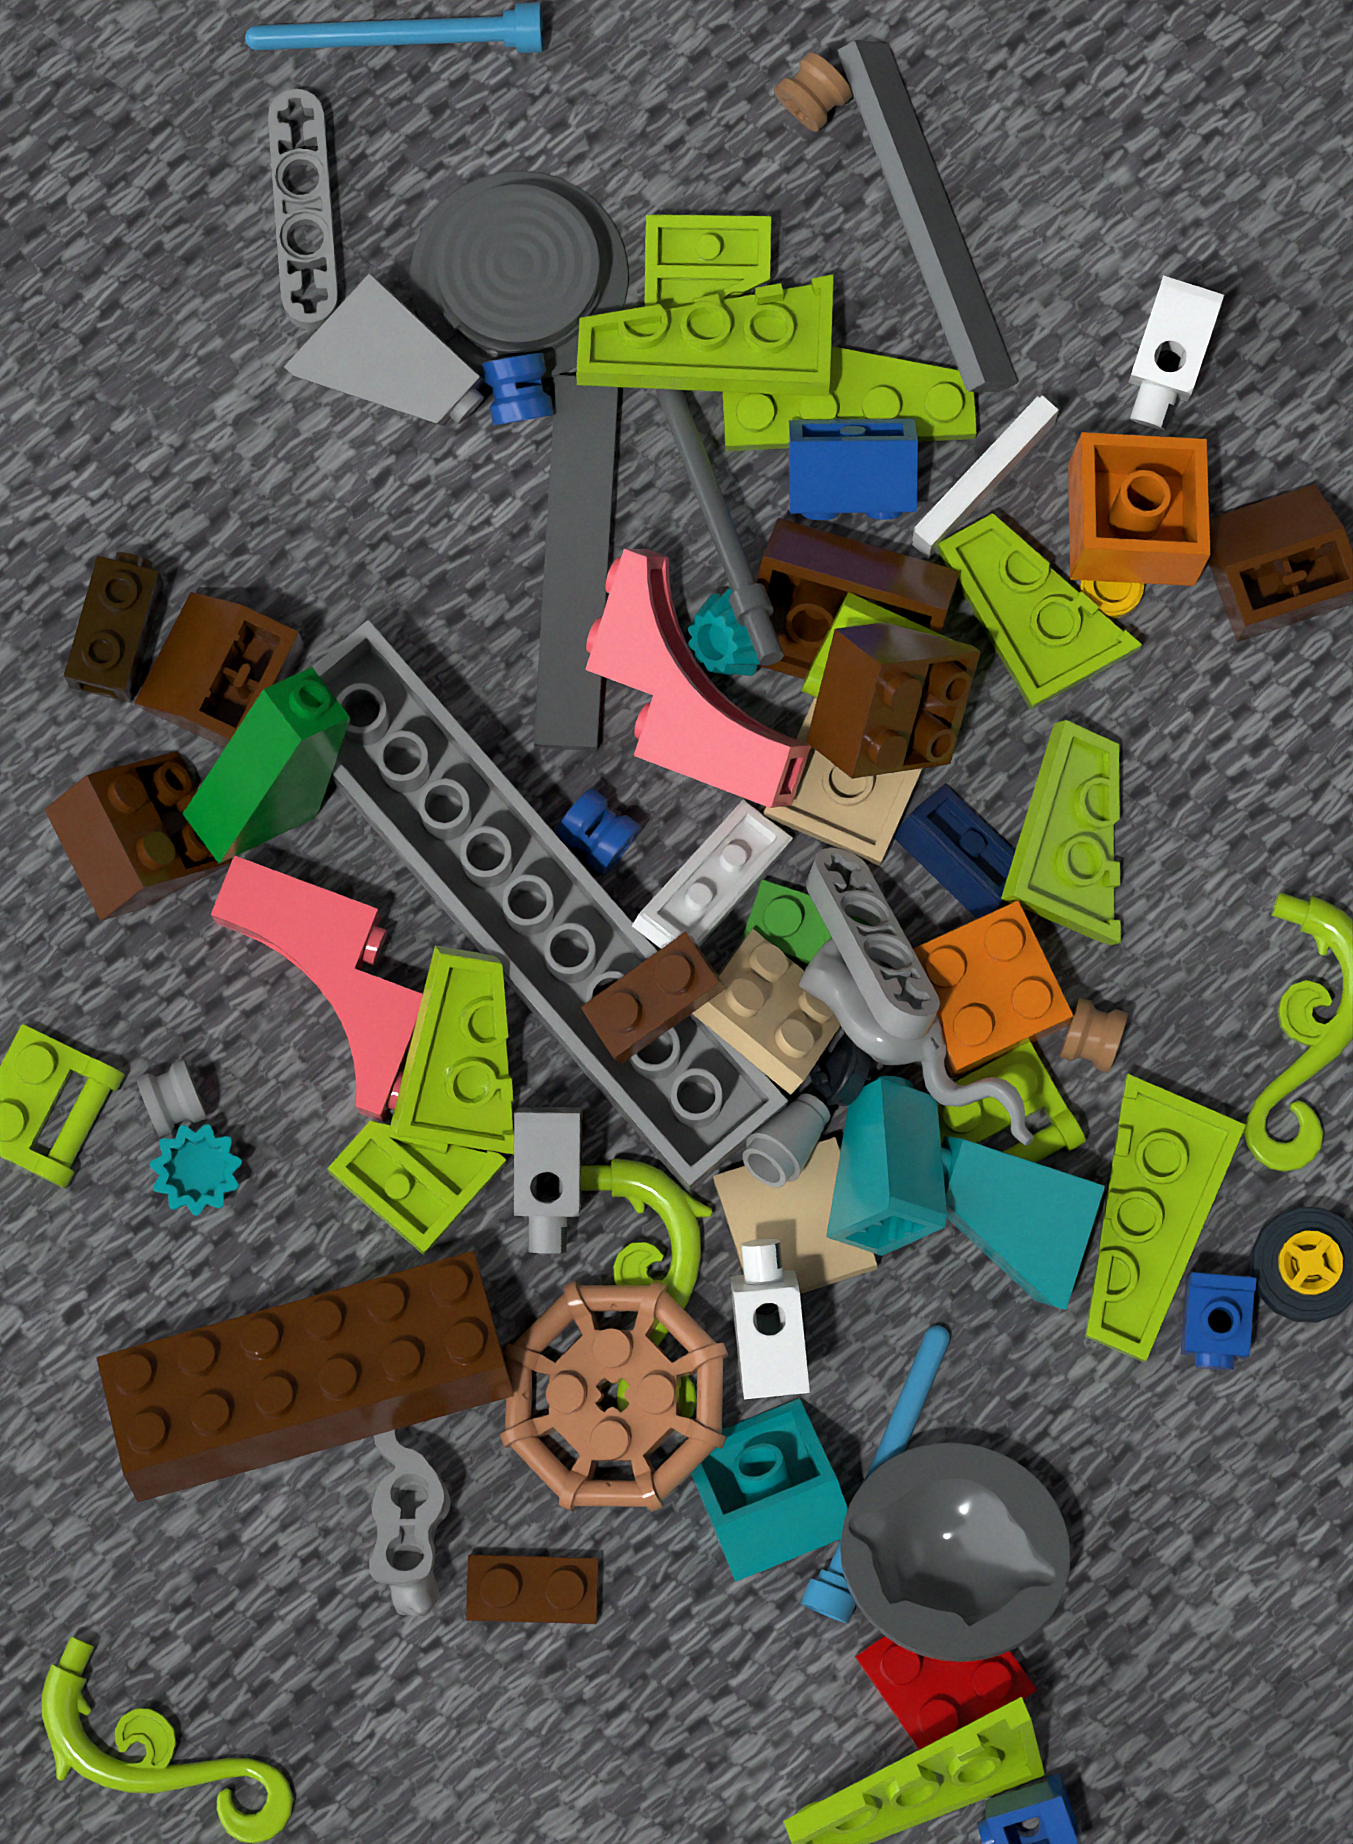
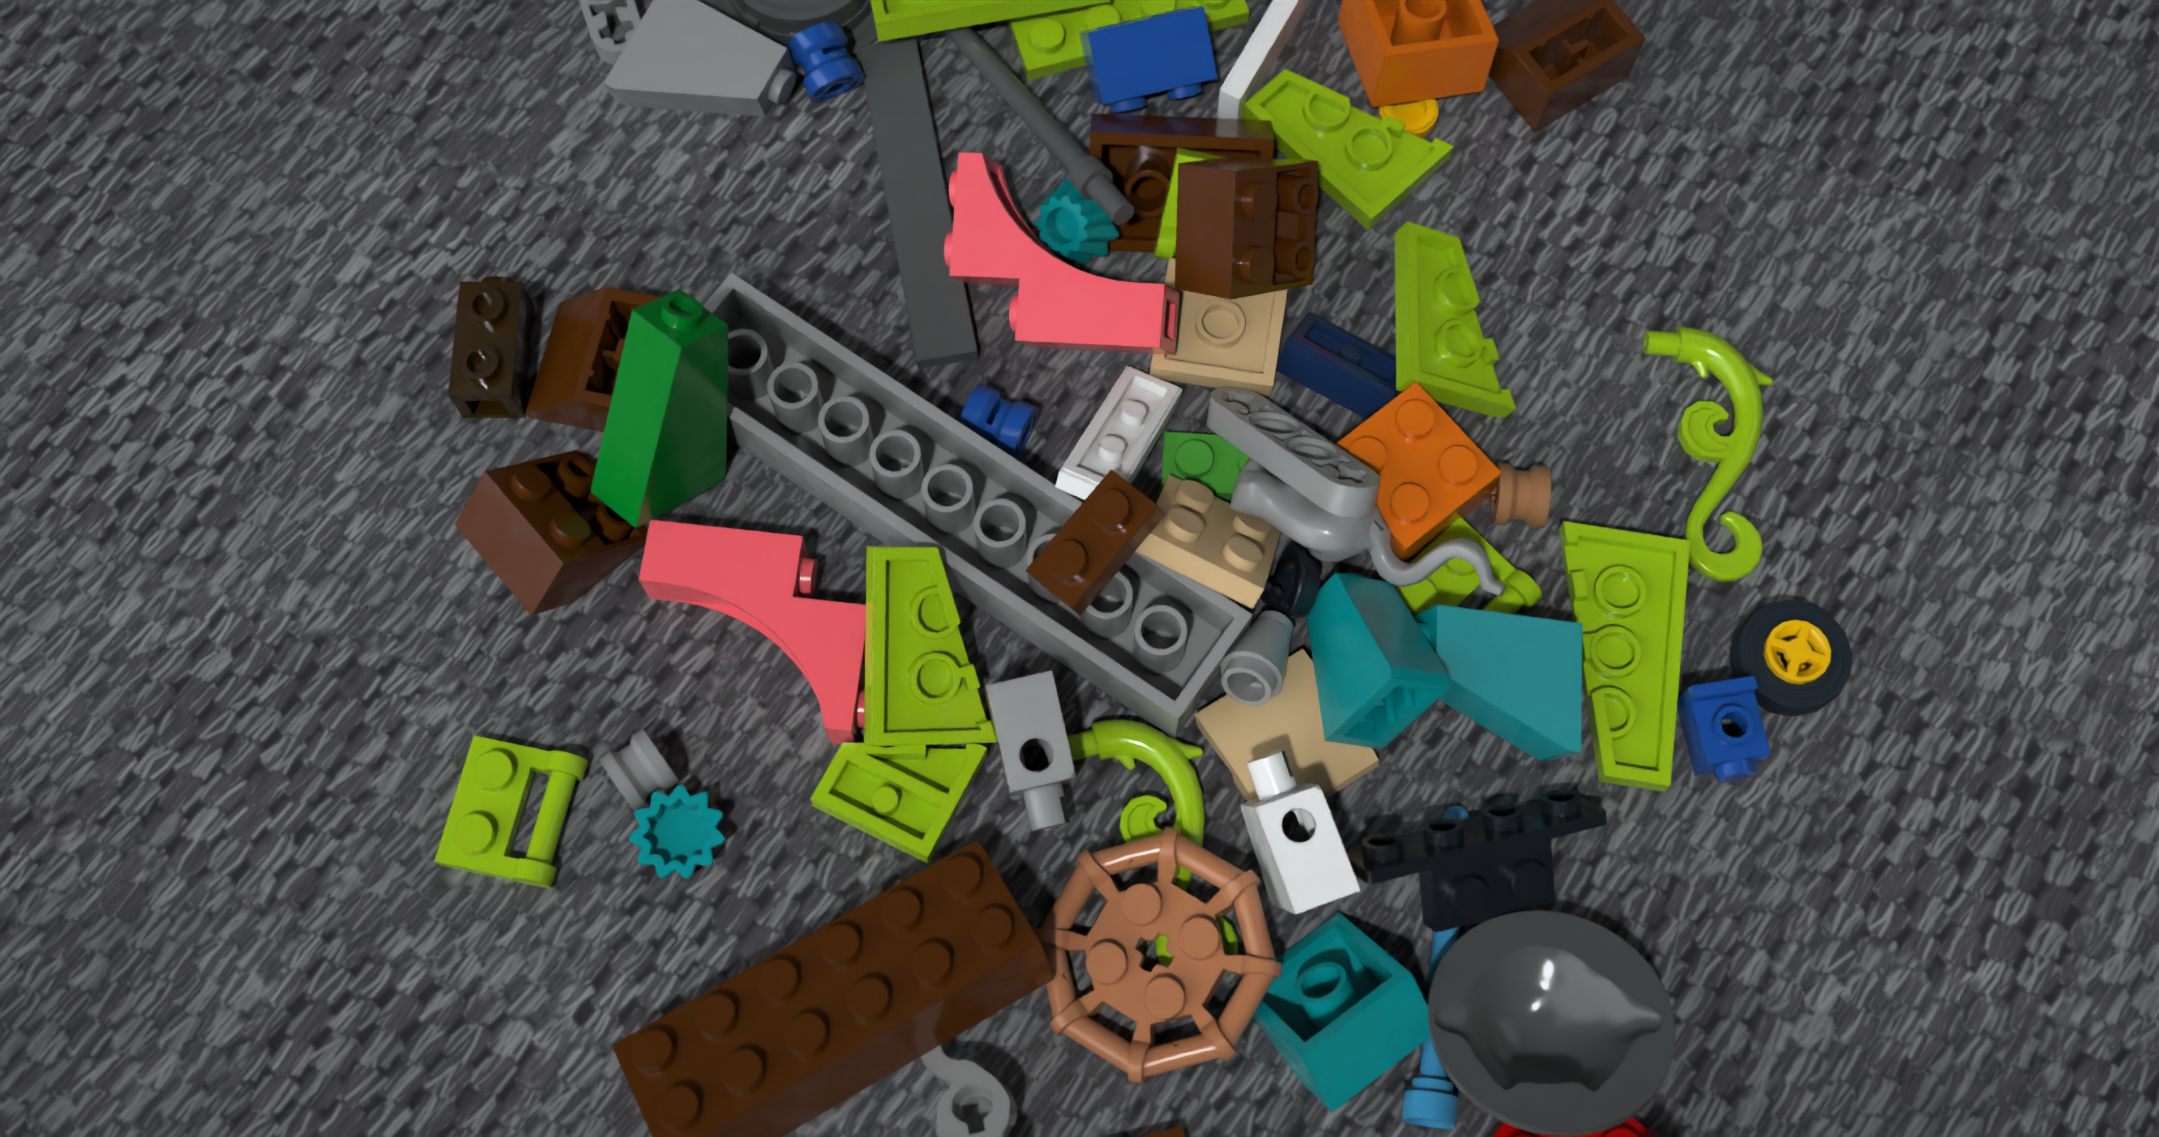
camera: 15 degrees left, 10 degrees down
(942, 1387) = (1482, 862): none -> black bracket

